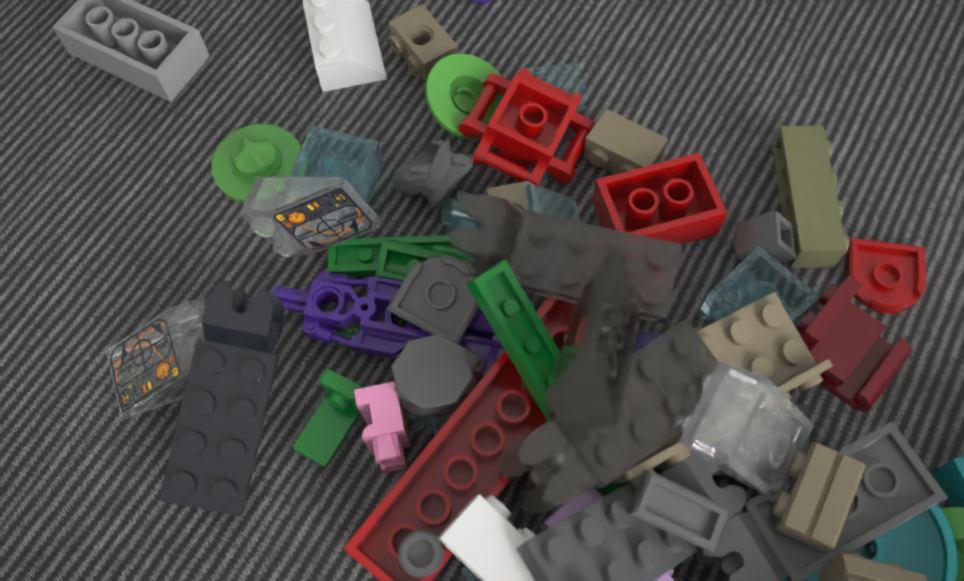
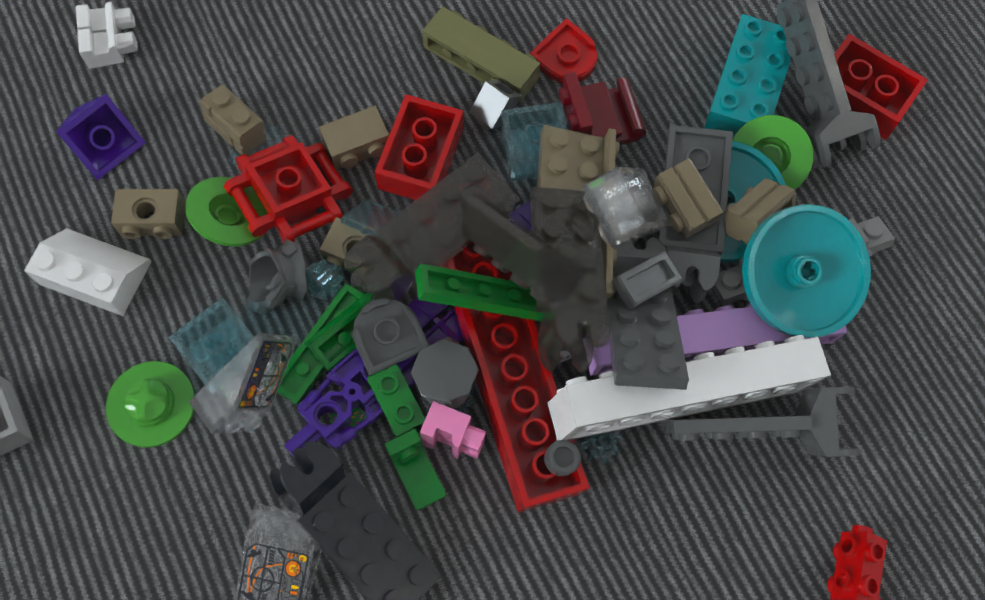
camera: 60 degrees left, 5 degrees up
(381, 350) = (396, 400): none -> green bracket
(558, 44) = (233, 120): none -> dark tan brick

